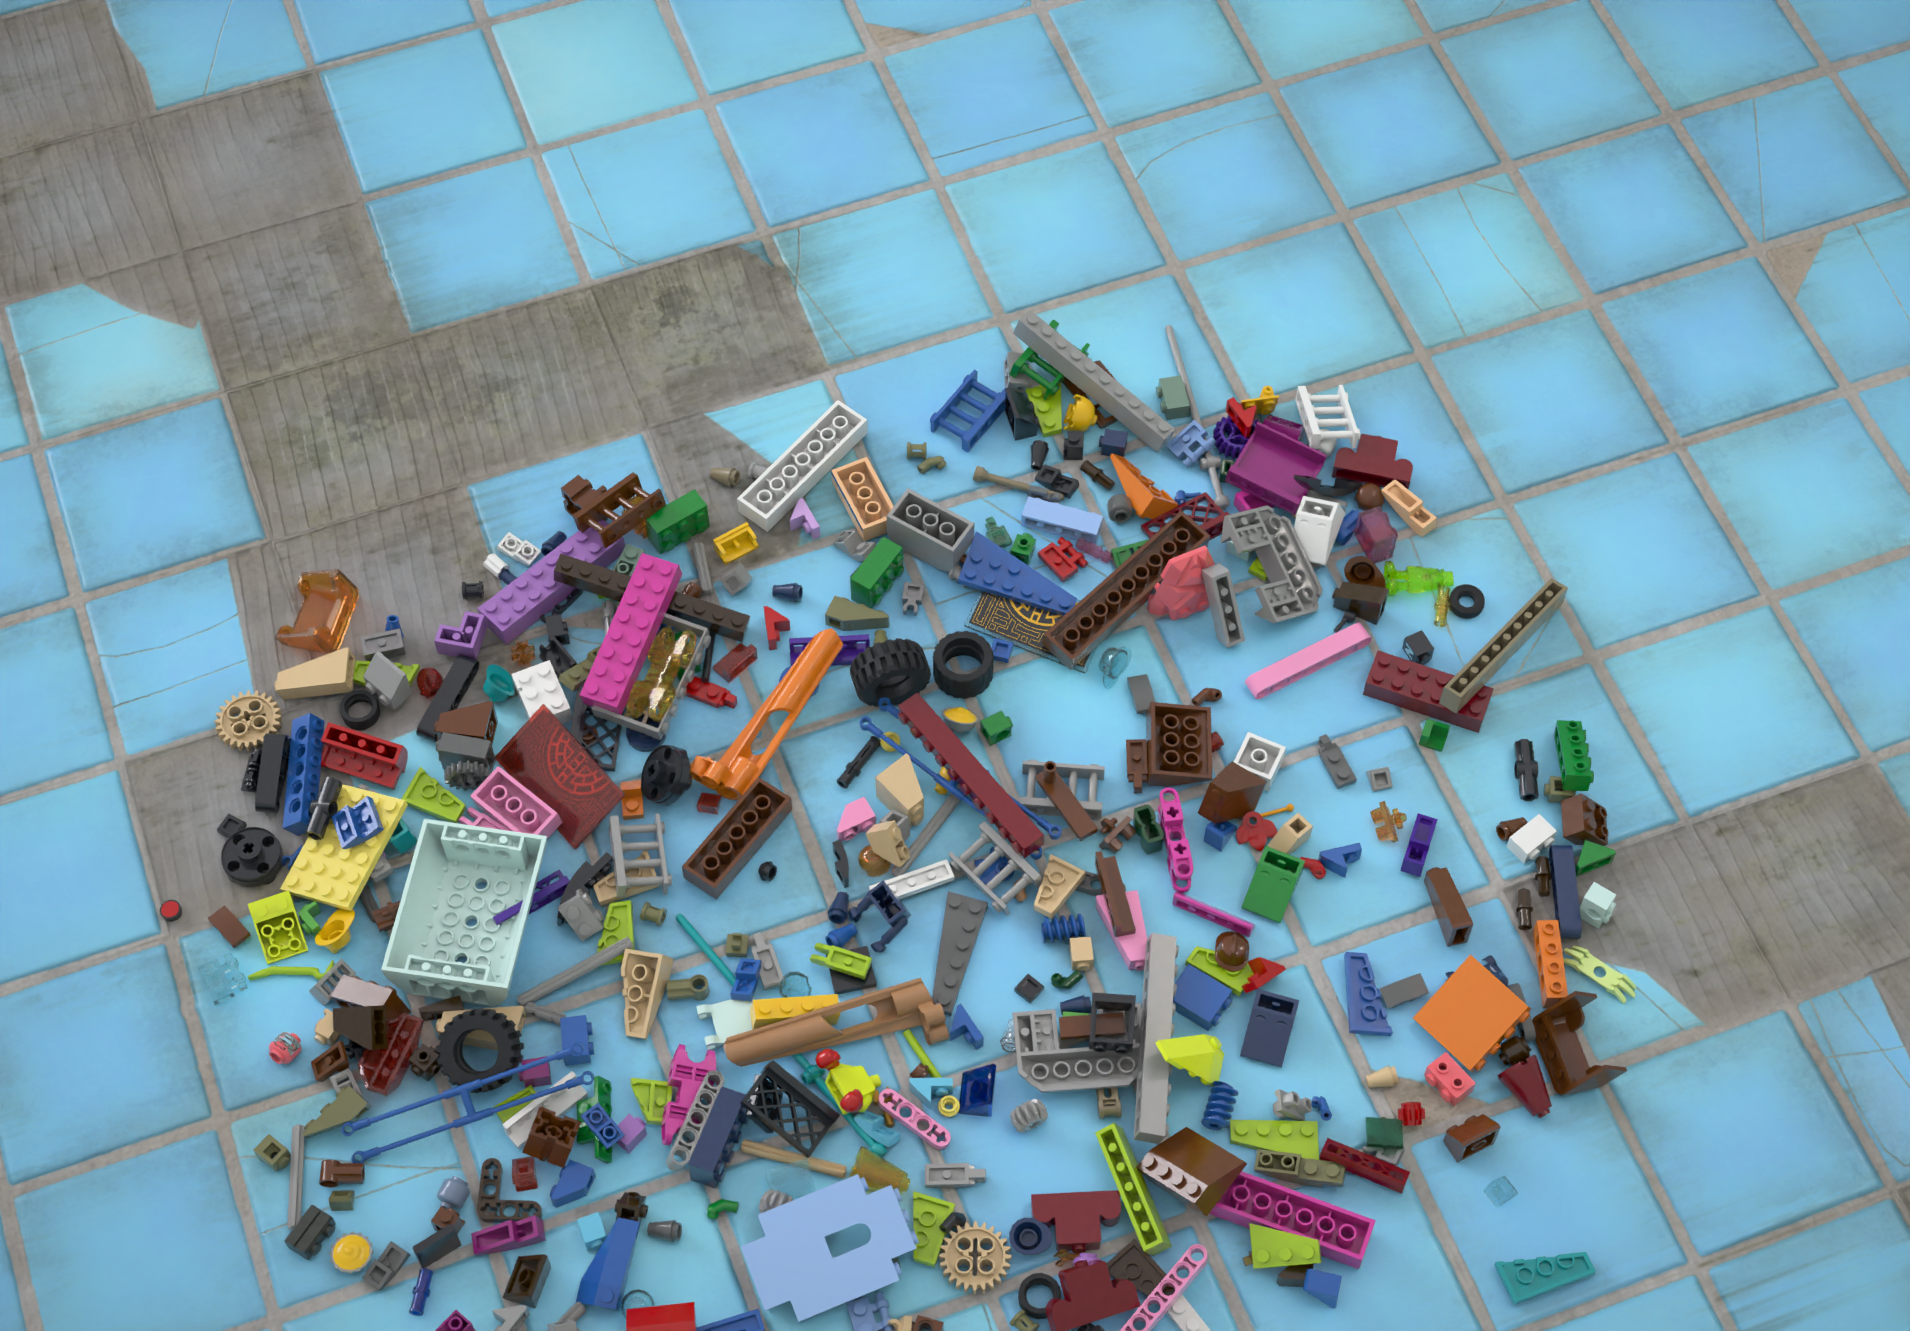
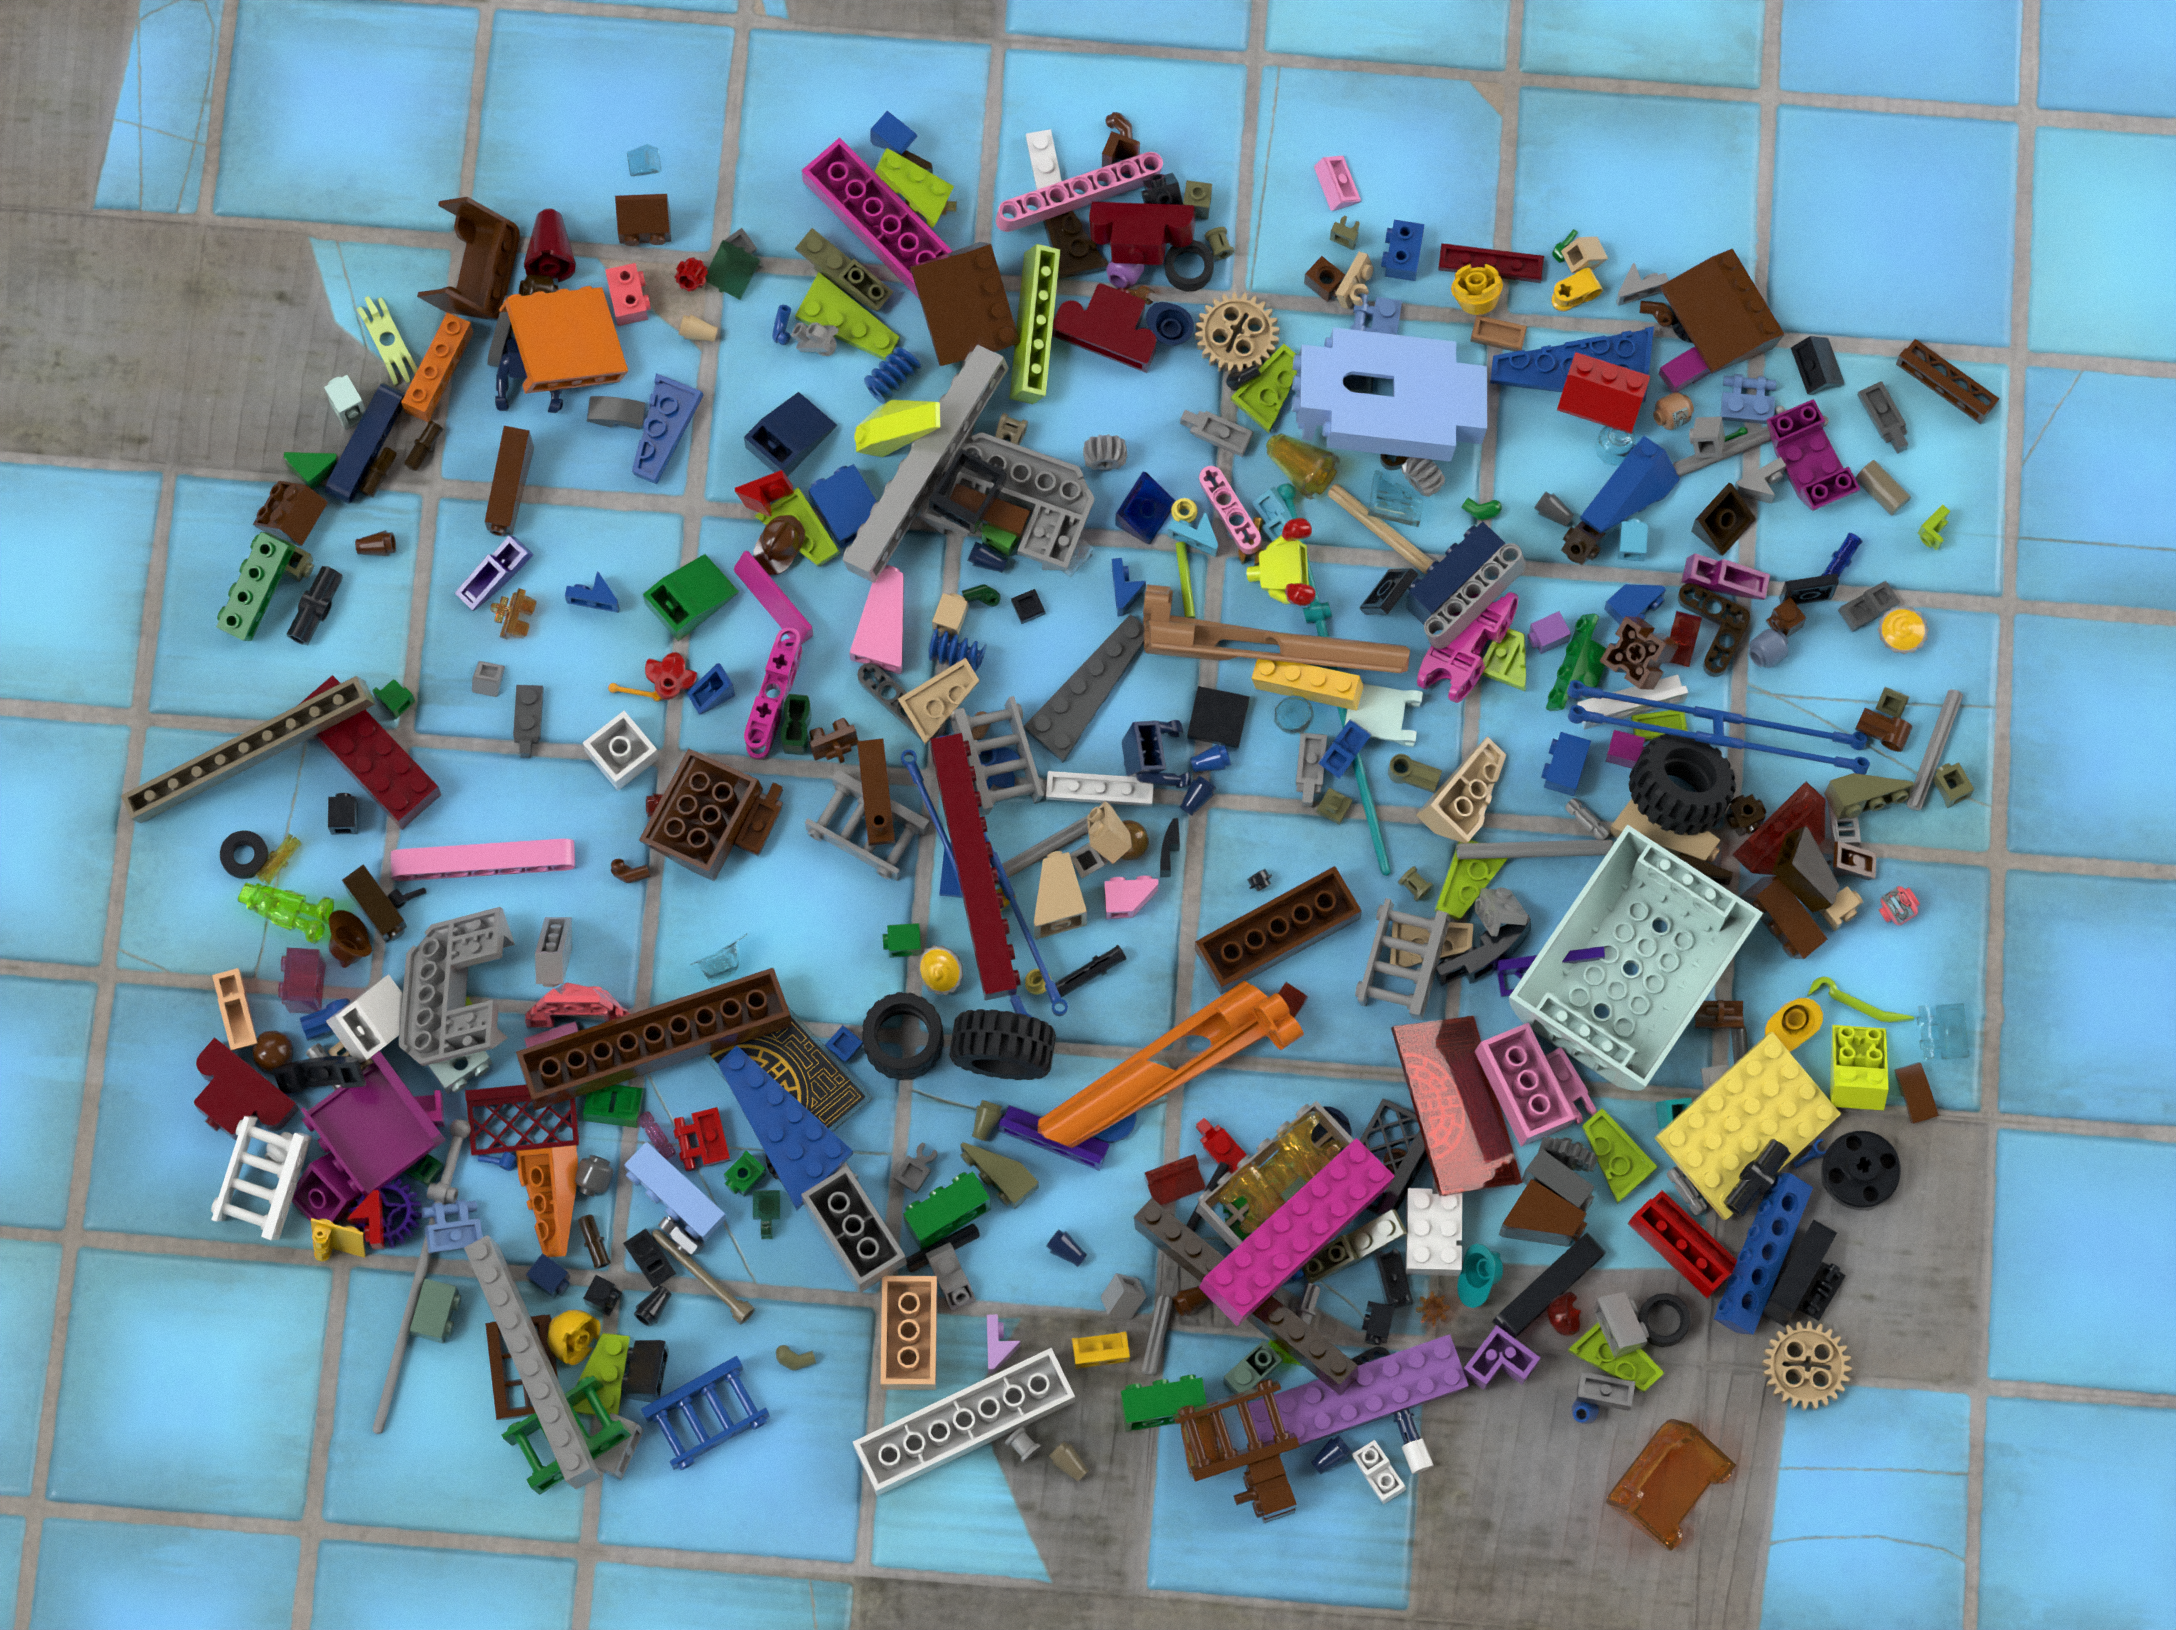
camera: 155 degrees left, 15 degrees up
(171, 910) = (1978, 1149): tile -> none
(230, 826) = (1872, 1229): black tile -> none
(307, 916) = (1820, 1049): bright green bracket -> none
(310, 1232) = (1939, 675): pearl dark grey brick -> none
(318, 677) = (1698, 1381): tan slope -> none
(321, 990) = (1829, 967): light grey slope -> none
(357, 823) = (1724, 1132): blue slope -> none
(472, 590) = (1466, 1440): black bush -> none
(602, 1126) = (1578, 641): blue slope -> none
(633, 800) = (1377, 1050): orange slope -> none
(666, 775) = (1329, 1042): black piece -> none
(774, 624) = (1106, 1209): red slope -> none
(796, 1092) = (1351, 582): black fence -> none
(842, 960) = (1225, 722): lime hinge -> none
(920, 1071) = (1199, 558): reddish brown plate -> none
(923, 447) = (805, 1384): olive bush -> none
(1114, 895) = (880, 651): reddish brown fence -> none
(1141, 692) = (705, 908): dark grey slope -> none
(1231, 794) = (681, 715): reddish brown slope -> none
(1292, 835) = (638, 642): tan slope -> none
(1315, 867) = (626, 602): red arm -> none
(1365, 1165) = (771, 239): dark red fence -> none
(1531, 839) = (362, 518): white brick -> none
(1541, 1275) = (657, 57): teal wing -> none

